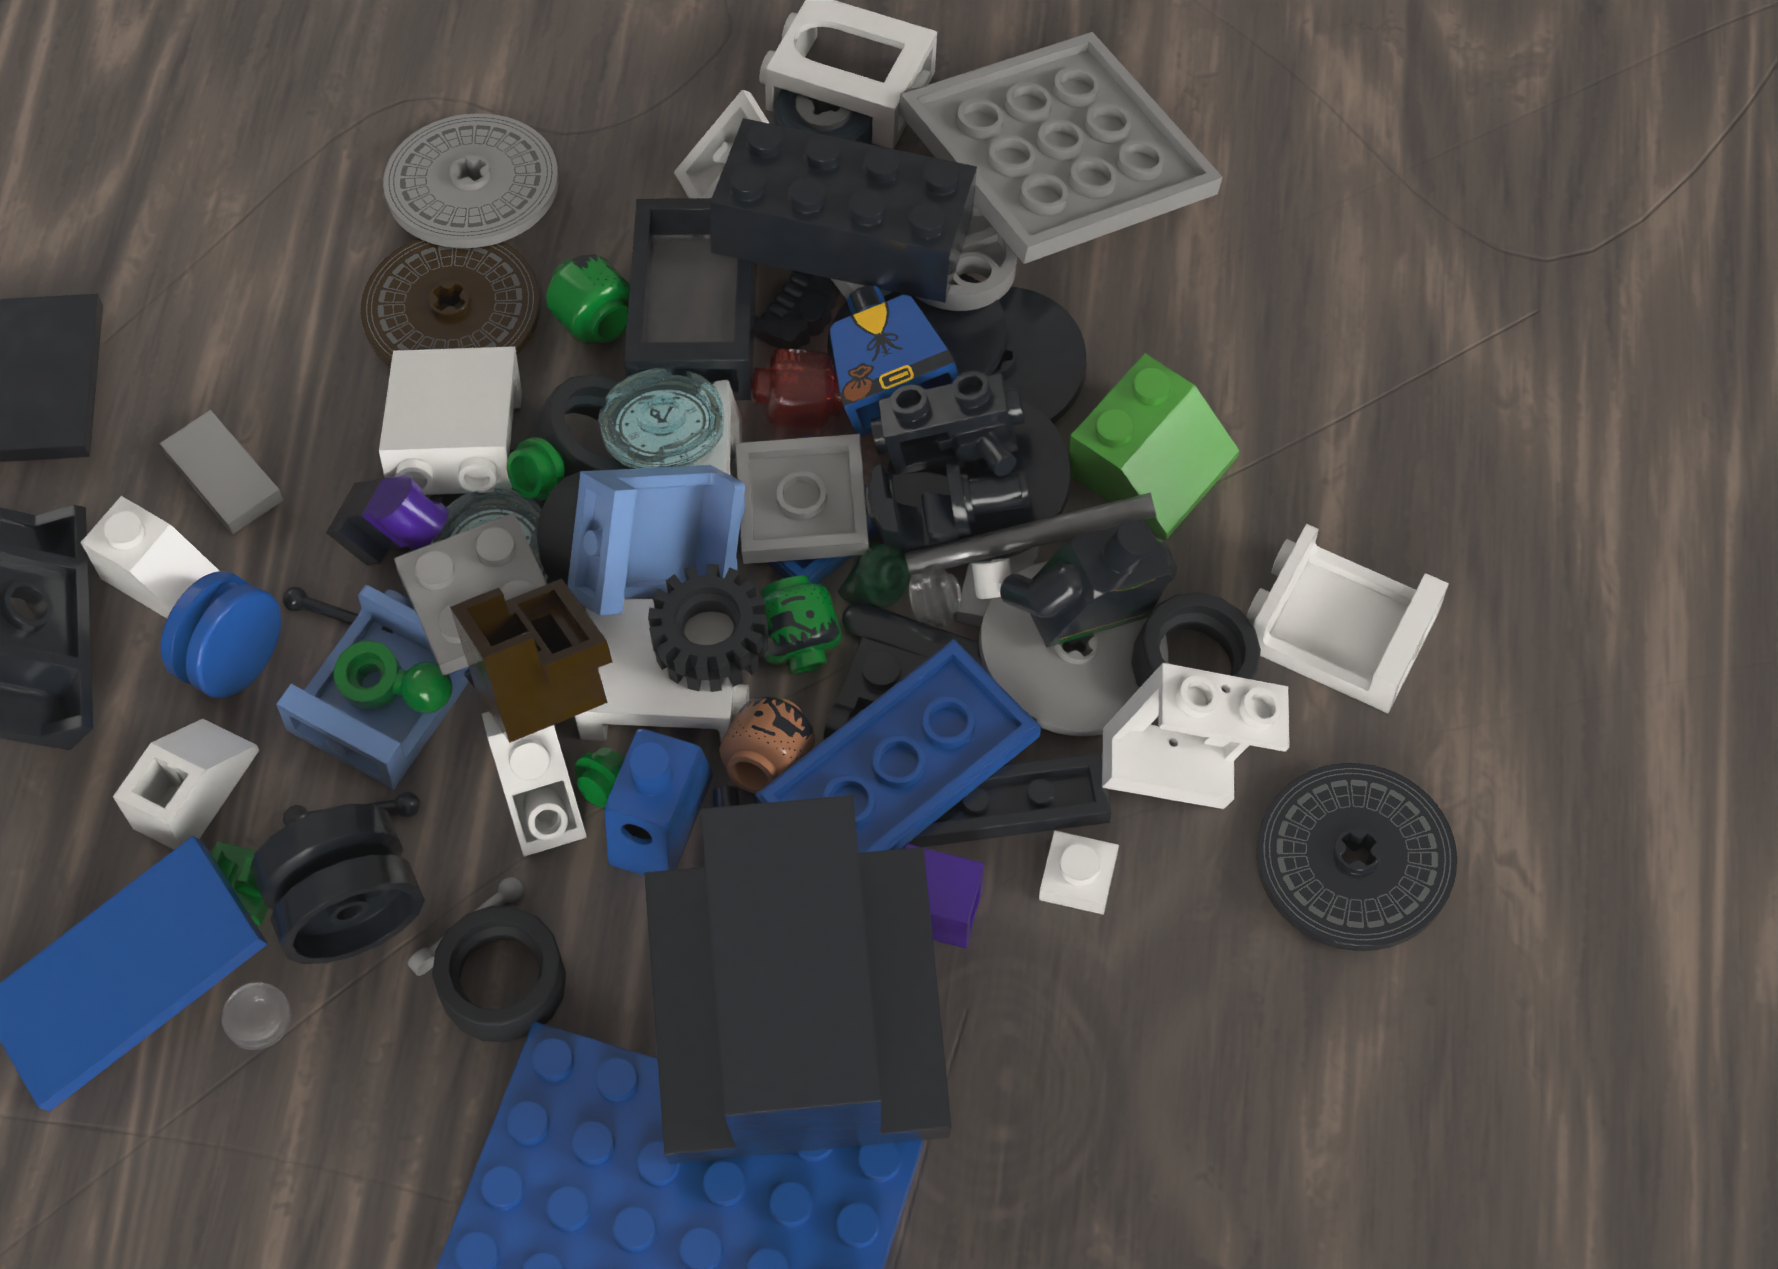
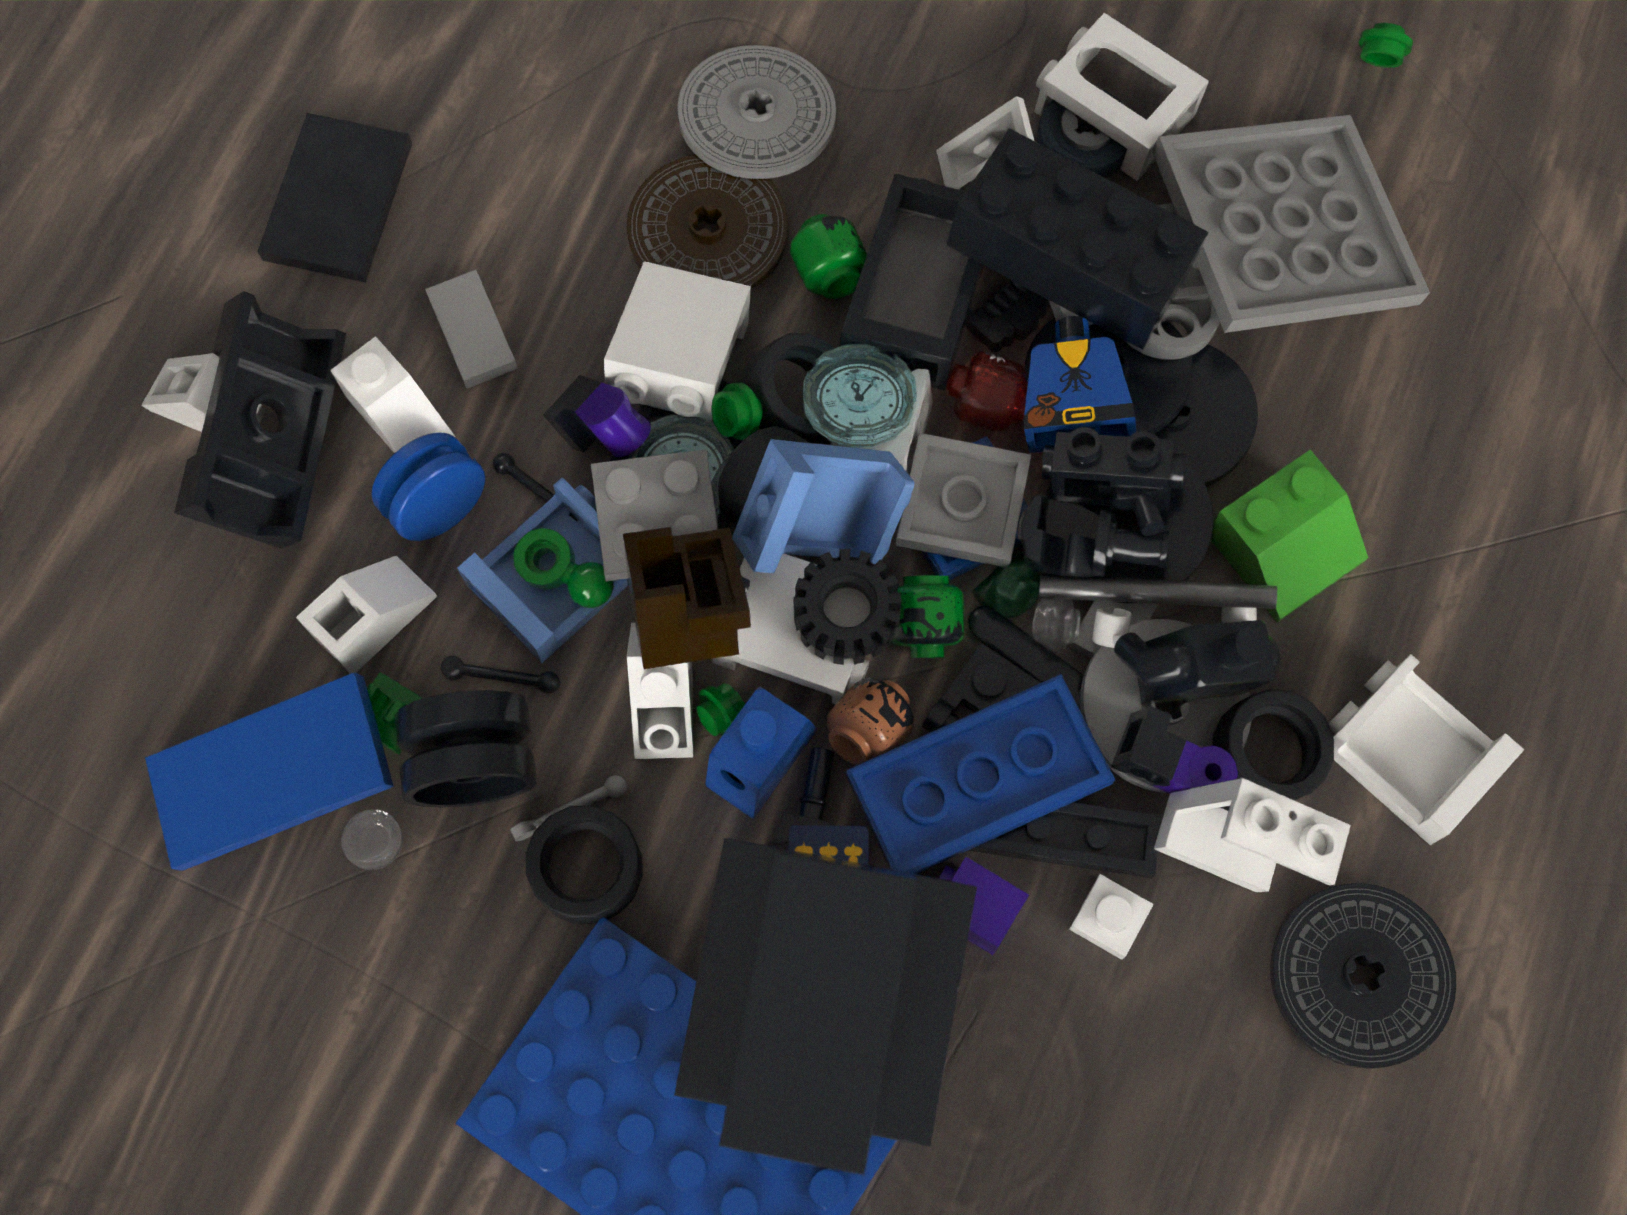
camera: 15 degrees right, 10 degrees up
(1083, 691) = (1167, 759): none -> black leg

